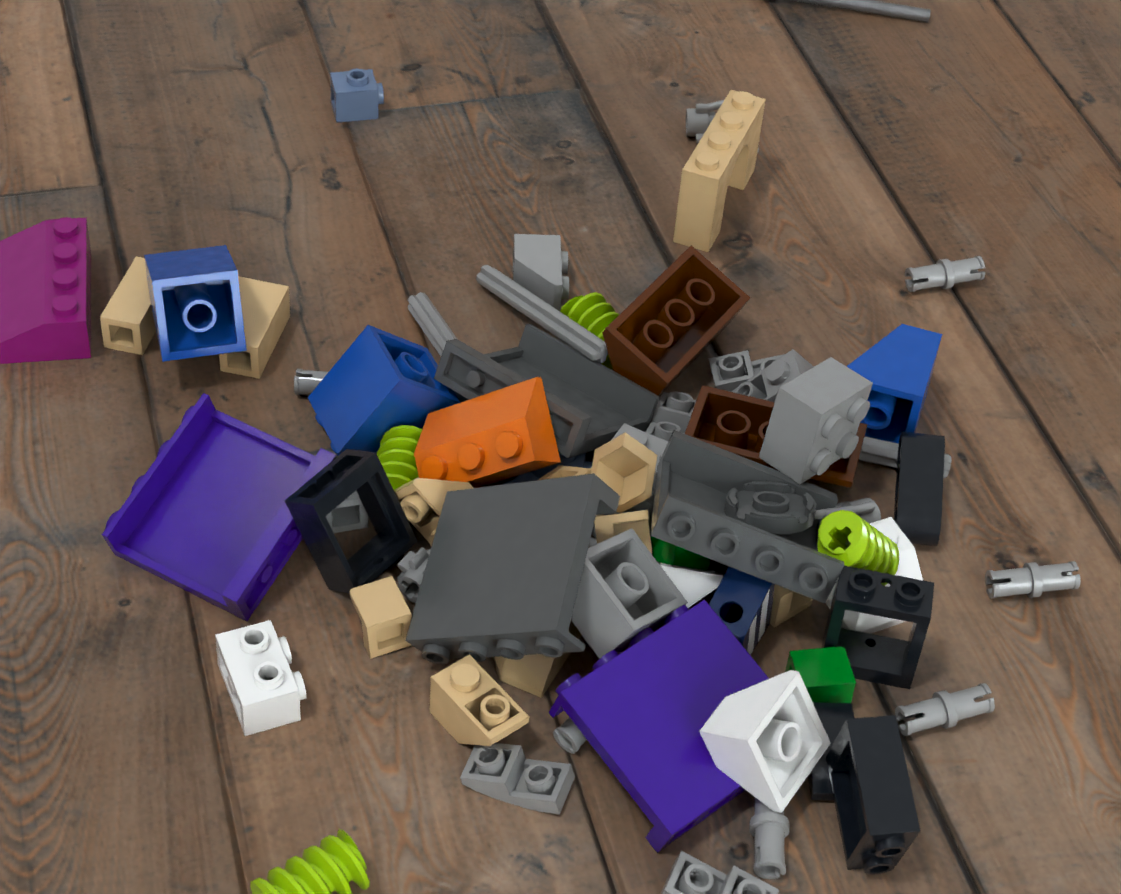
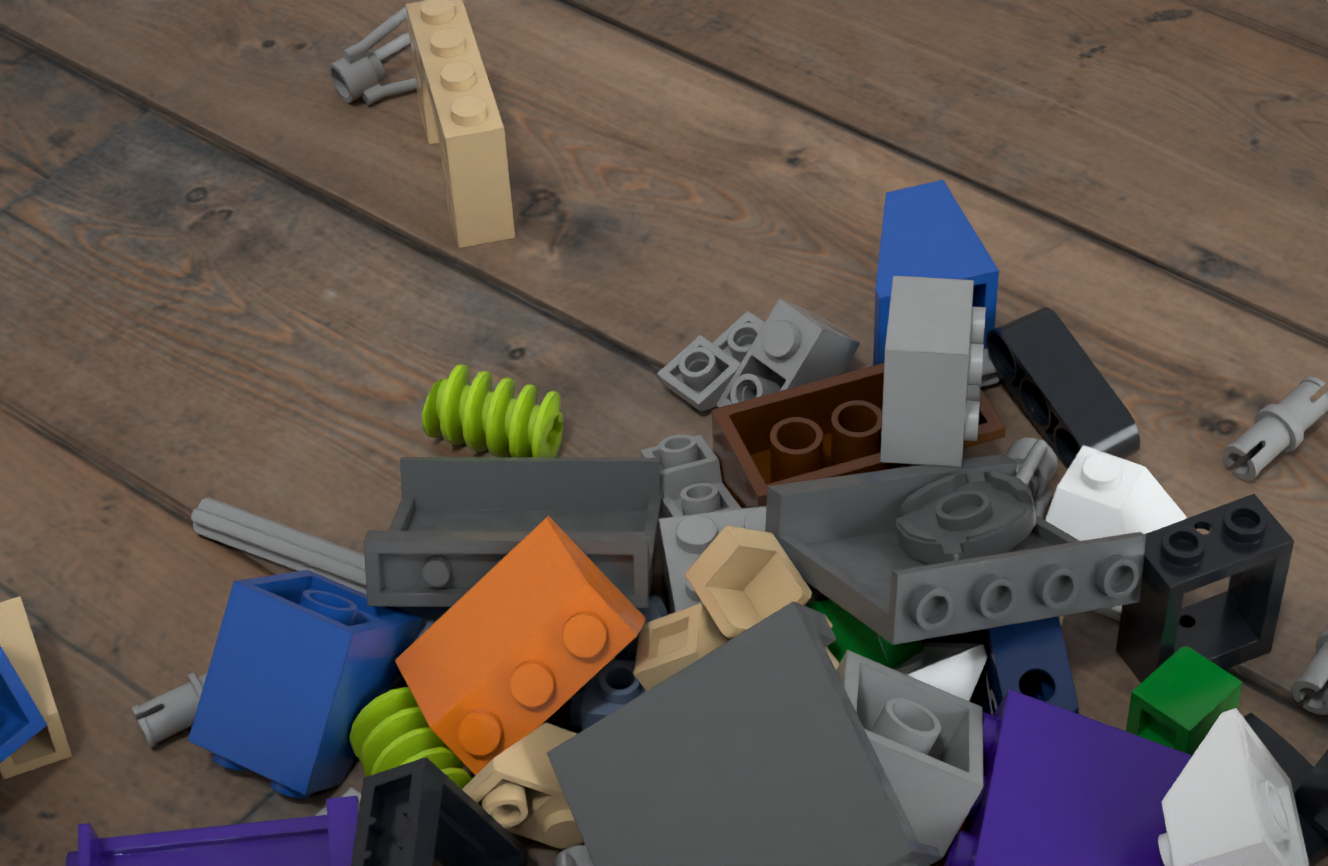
camera: 30 degrees left, 0 degrees up
(540, 266) = (337, 379): light grey slope -> none
(543, 314) = (401, 434): light grey axle -> none
(672, 322) = (597, 351): reddish brown slope -> none
(857, 543) = (1110, 484): lime piece -> none
(944, 273) = (827, 110): light grey pin -> none

